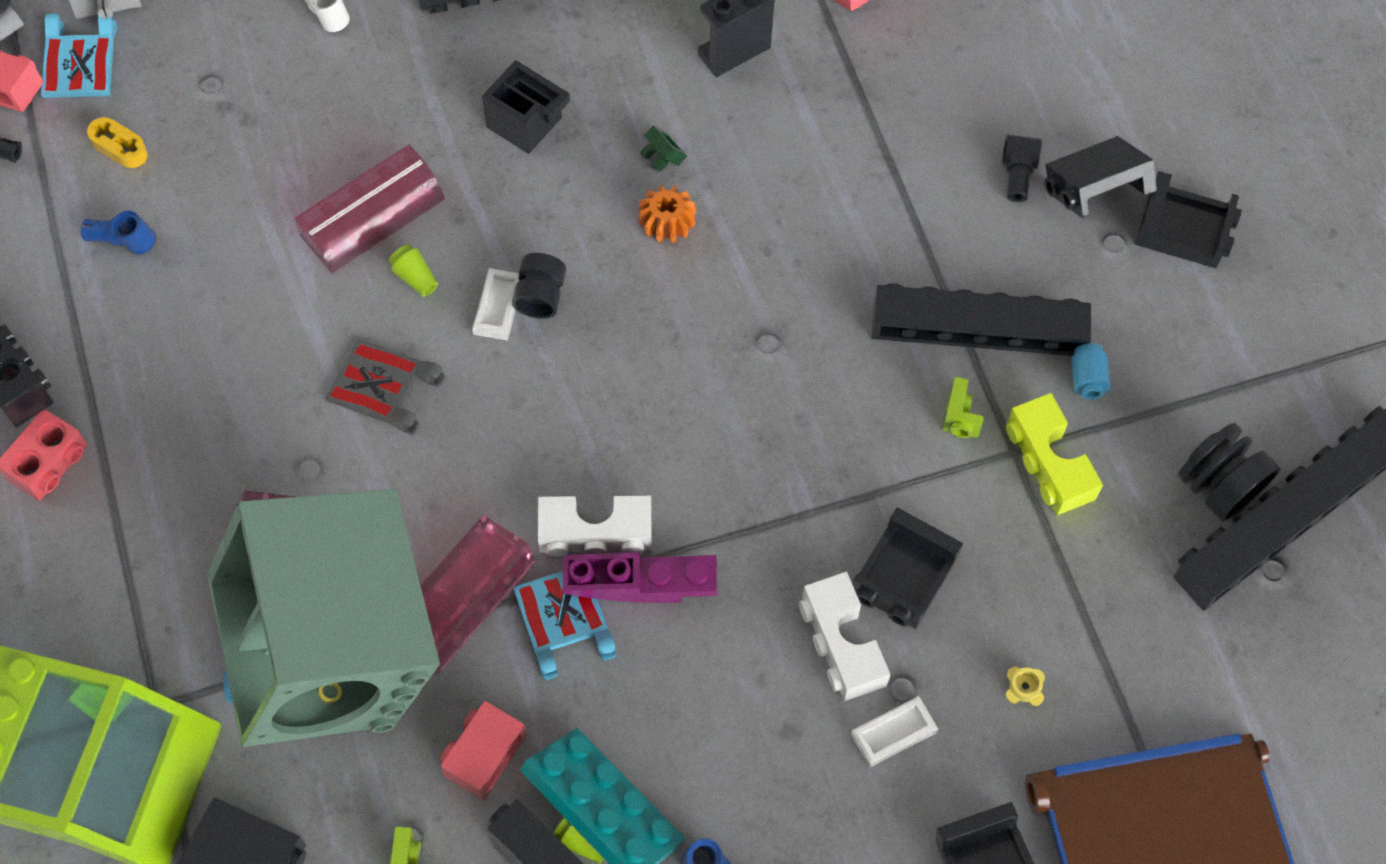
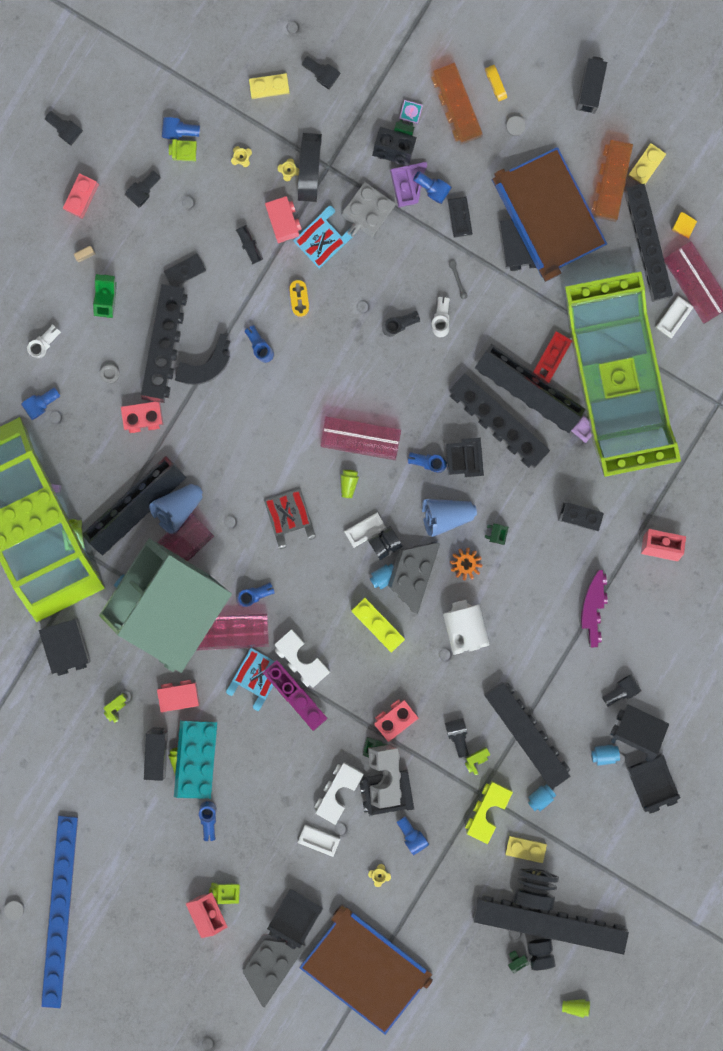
camera: 50 degrees right, 25 degrees up
(78, 325) = (209, 371): none -> black arch
(146, 570) = (133, 506): none -> black brick
(203, 510) = (176, 507): none -> medium blue cone
(273, 55) = (400, 323): none -> black pin
(441, 516) = (255, 594): none -> blue pin
(486, 154) = (427, 461): none -> blue pin
(518, 36) = (538, 450): none -> black brick
(573, 185) = (446, 515): none -> medium blue cone
(584, 325) = (382, 576): none -> dark azure brick
(616, 286) = (412, 573): none -> dark grey wing
(623, 380) = (378, 625): none -> neon yellow arch
(741, 270) = (465, 627): none -> white cylinder
(809, 471) = (399, 724): none -> coral brick
(819, 534) = (370, 743): none -> dark green tile
(859, 521) = (388, 791): none -> light grey arch
(864, 109) = (593, 600): none -> magenta slope
(895, 406) = (457, 733): none -> black pin
(1011, 588) = (414, 840): none -> blue pin
(1095, 246) = (605, 755): none -> dark azure brick
(1151, 453) = (526, 849): none -> light yellow plate
(1324, 593) = (518, 962): none -> dark green tile
(1339, 548) = (541, 954): none -> black wheel

